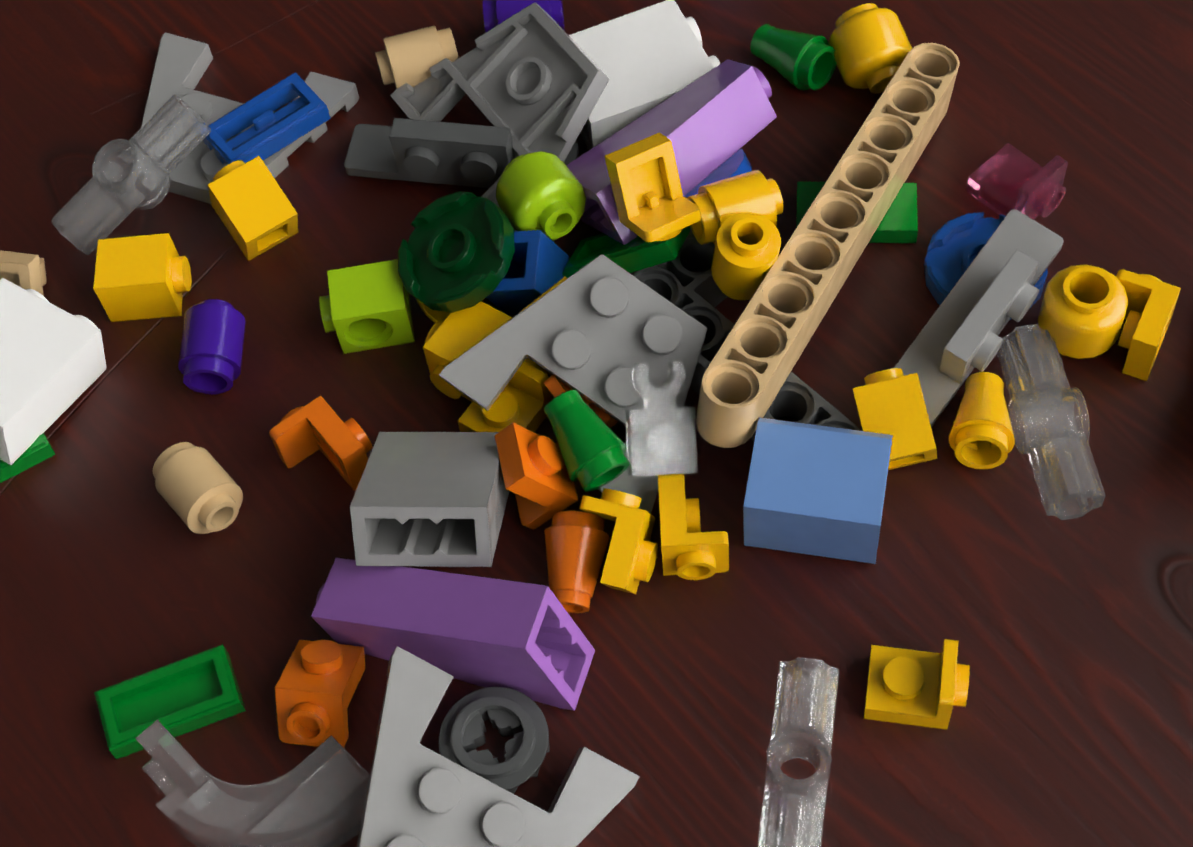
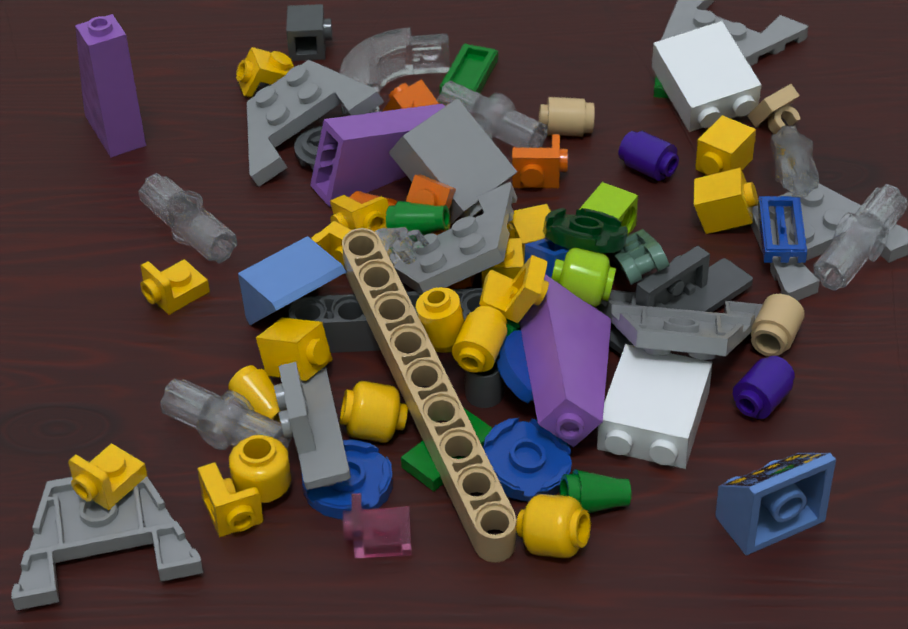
camera: 125 degrees right, 15 degrees down
(219, 55) = (860, 237): none -> clear piece
(266, 576) = (497, 116): none -> clear piece
(441, 178) = (640, 256): none -> sand green plate
(806, 135) = (527, 458): none -> blue tile
(893, 291) = (373, 412): none -> yellow head

